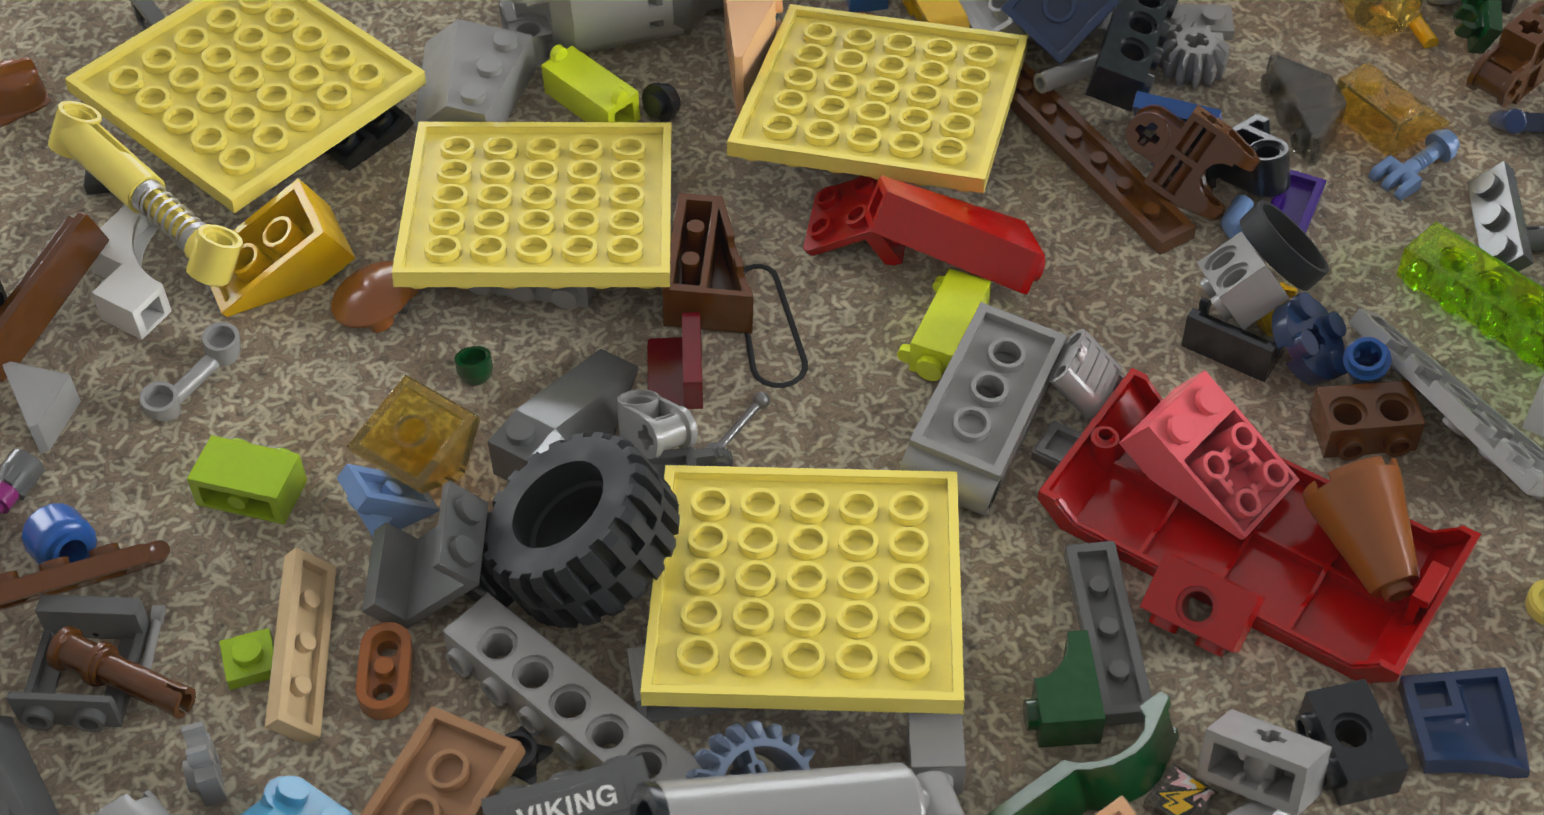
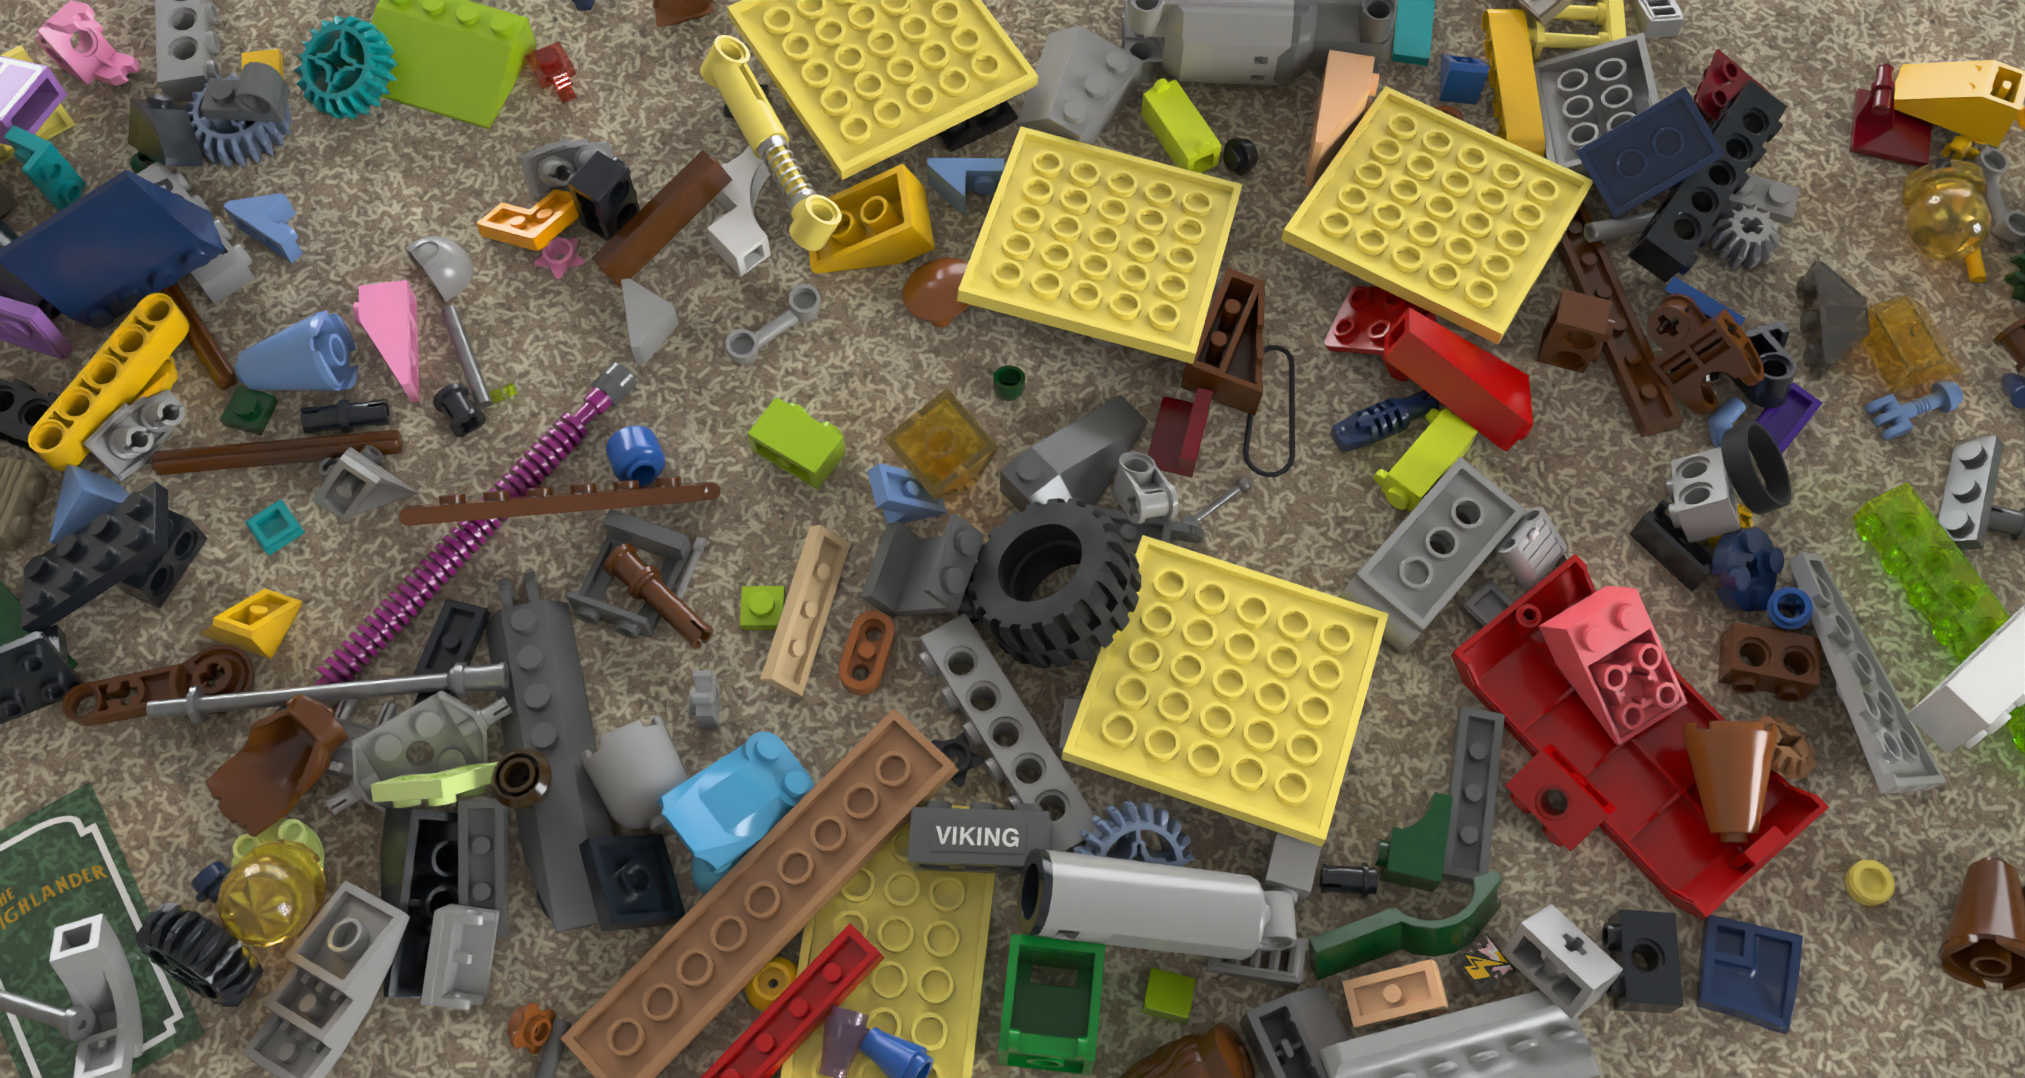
camera: 15 degrees right, 15 degrees up
(363, 185) = (957, 175): none -> medium blue slope
(887, 302) = (1381, 420): none -> dark blue hinge
(1004, 753) = (1349, 879): none -> black pin
(1058, 169) = (1576, 331): none -> reddish brown brick
(1424, 499) = (1797, 757): none -> medium nougat gear

